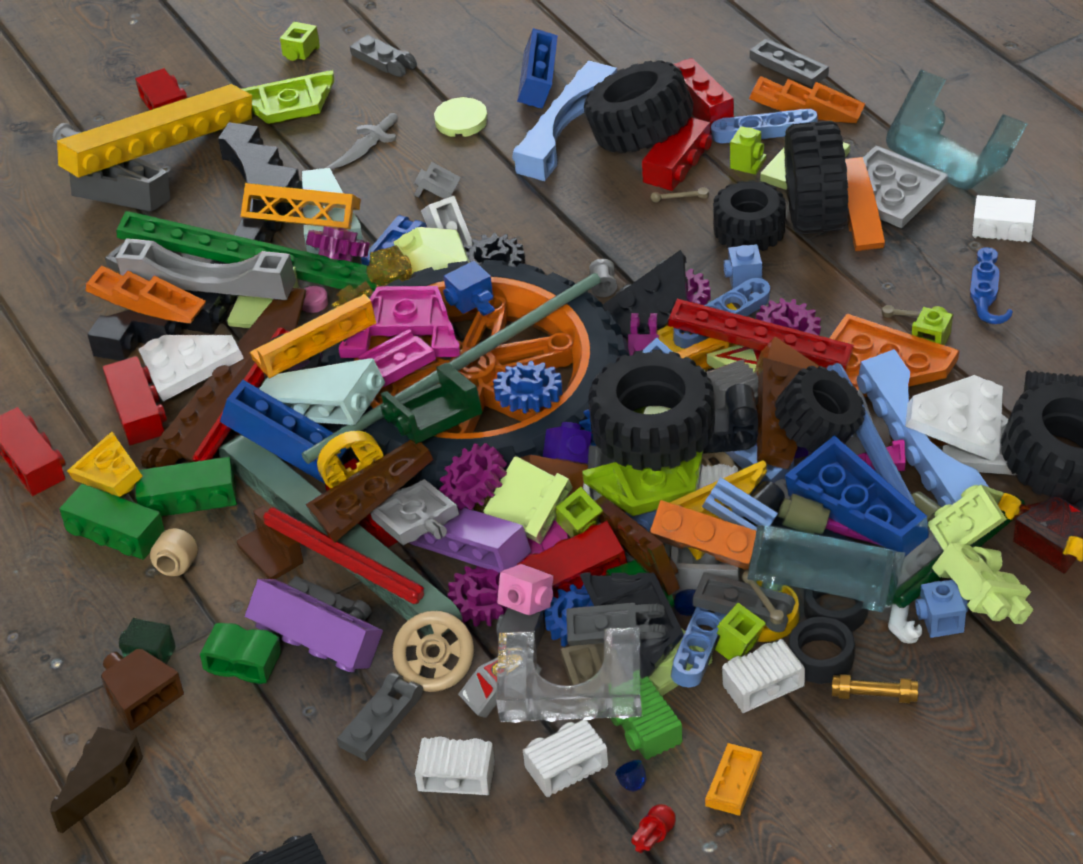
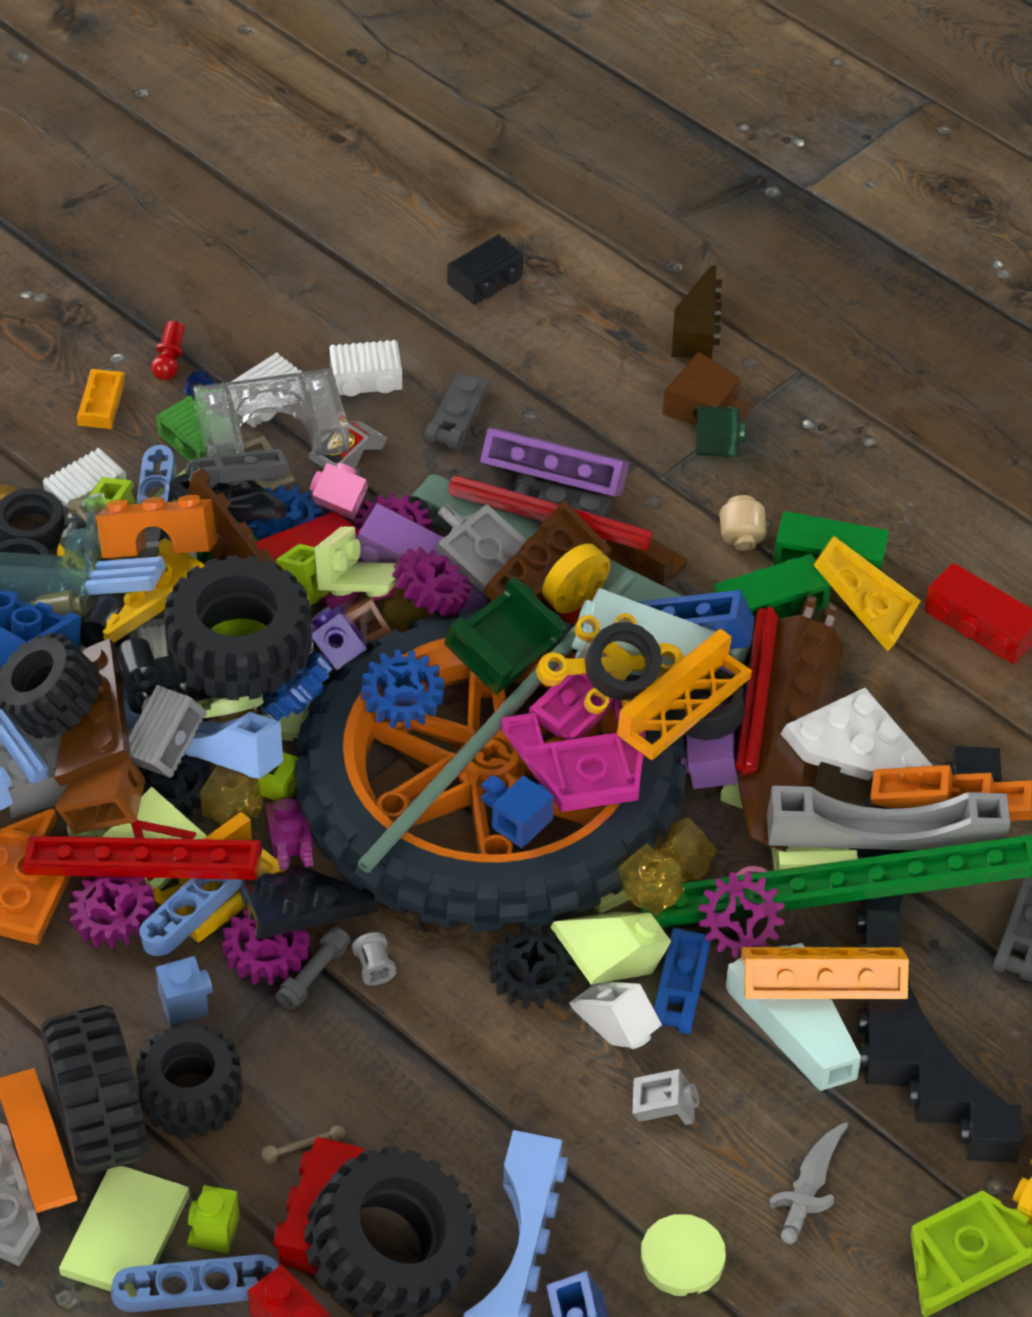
camera: 160 degrees right, 5 degrees up
(135, 400) = (899, 690): brick -> none
(240, 653) = (621, 435): green brick -> none
(352, 329) = (642, 641): none -> black tyre
(359, 350) = (617, 663): none -> yellow plant
(440, 623) = (423, 458): tan plate -> none

